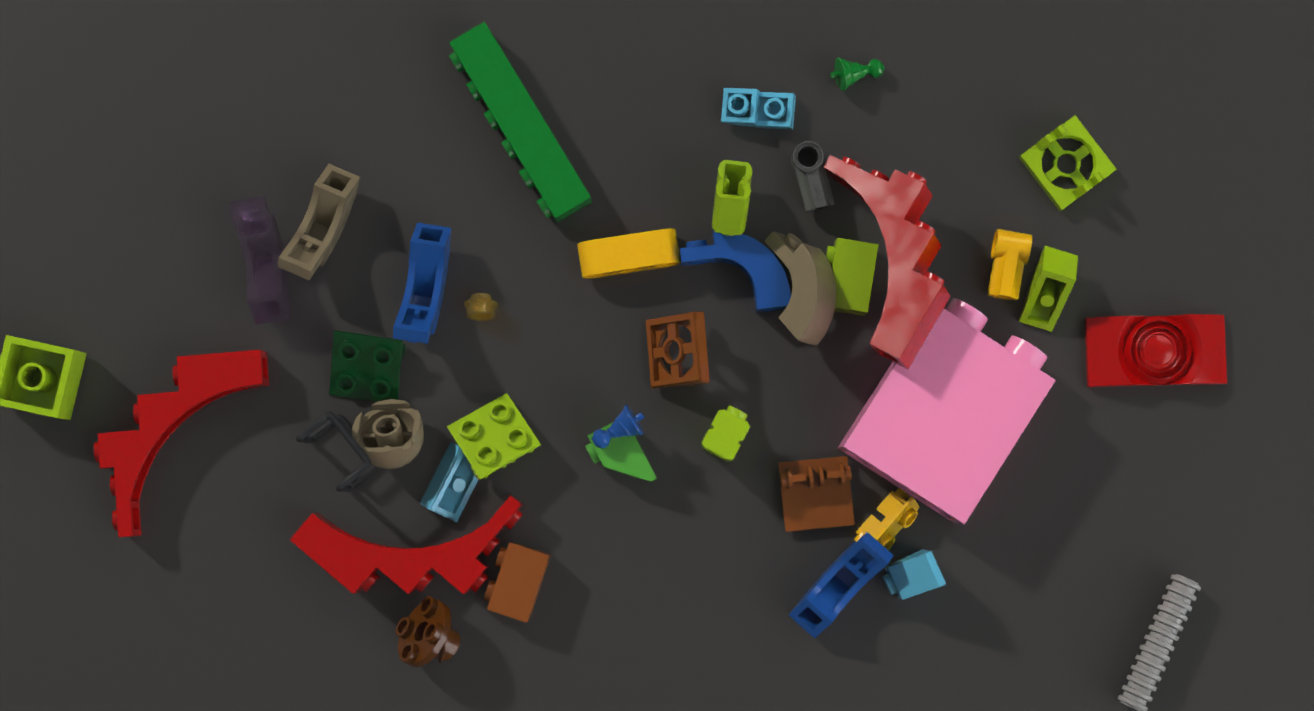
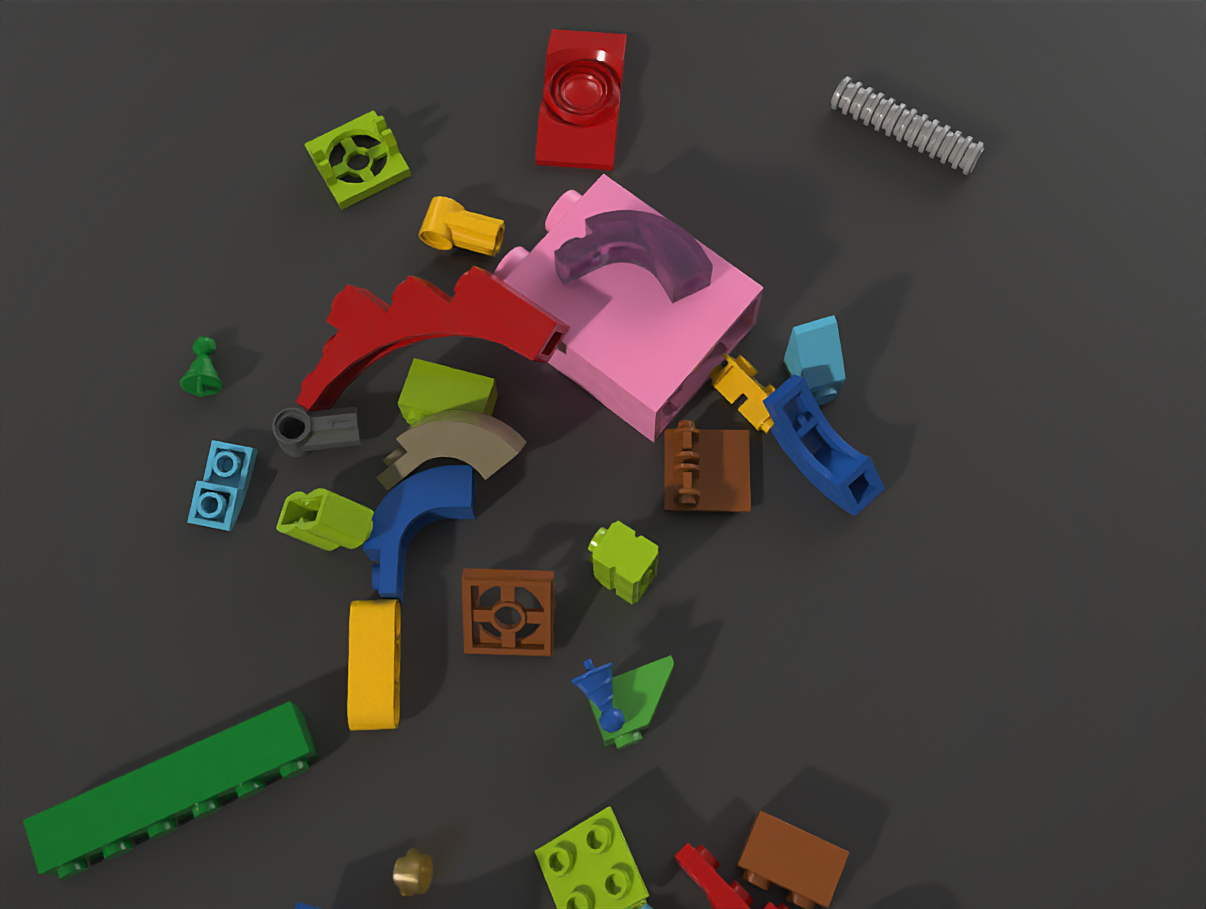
camera: 85 degrees left, 15 degrees down
(989, 420) = (639, 240): none -> clear purple arch
(1049, 288) = (496, 188): lime slope -> none

